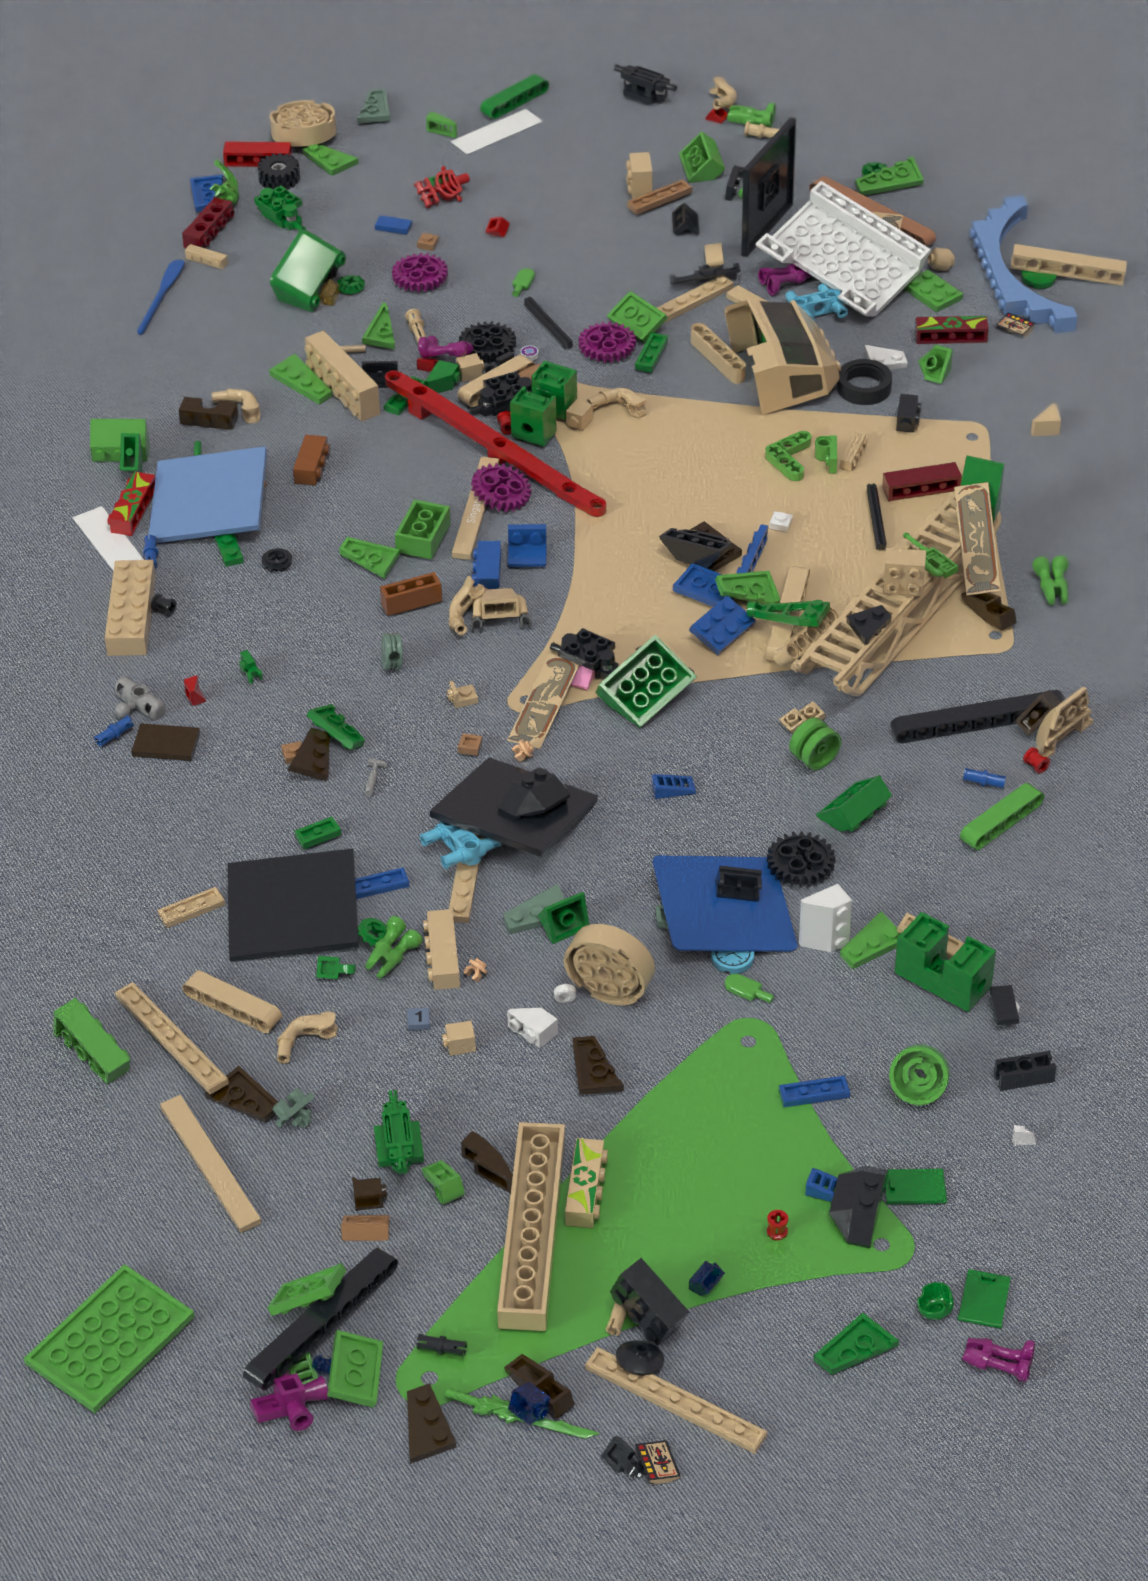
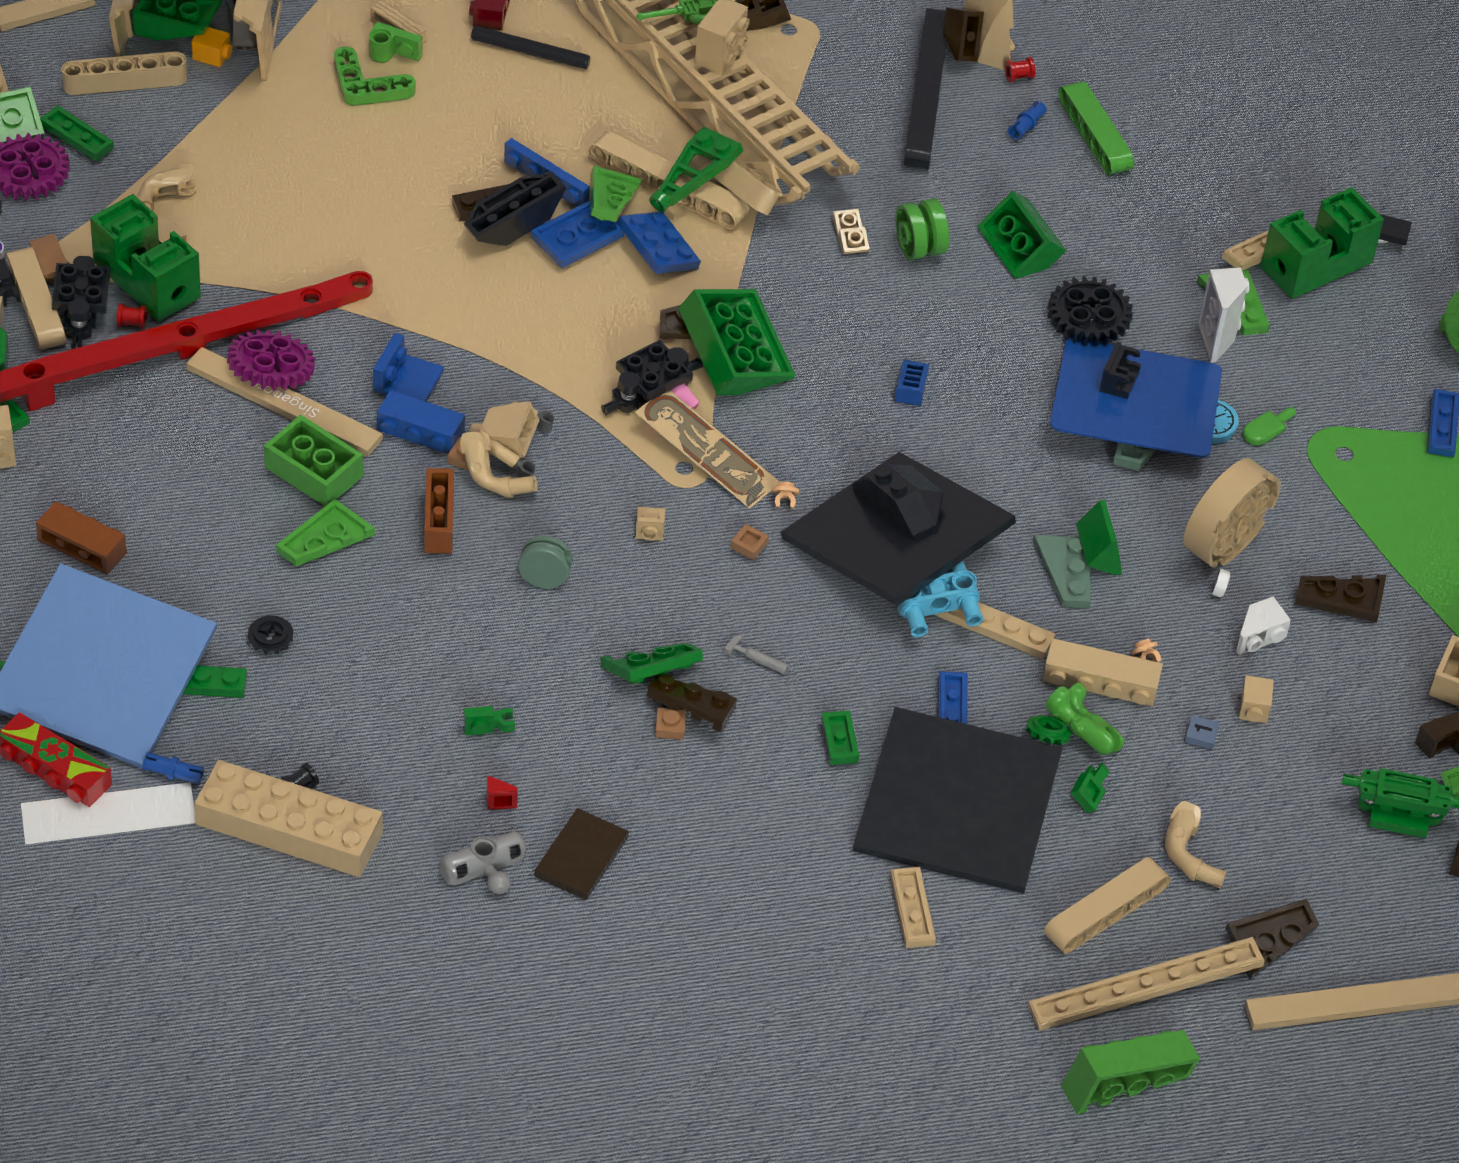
camera: 75 degrees left, 5 degrees up
(113, 731) = (535, 903): blue pin -> none
(299, 1102) = (1318, 886): sand green hips -> none
(780, 521) = (489, 131): white plate -> none
(869, 622) = (774, 102): black wing -> none

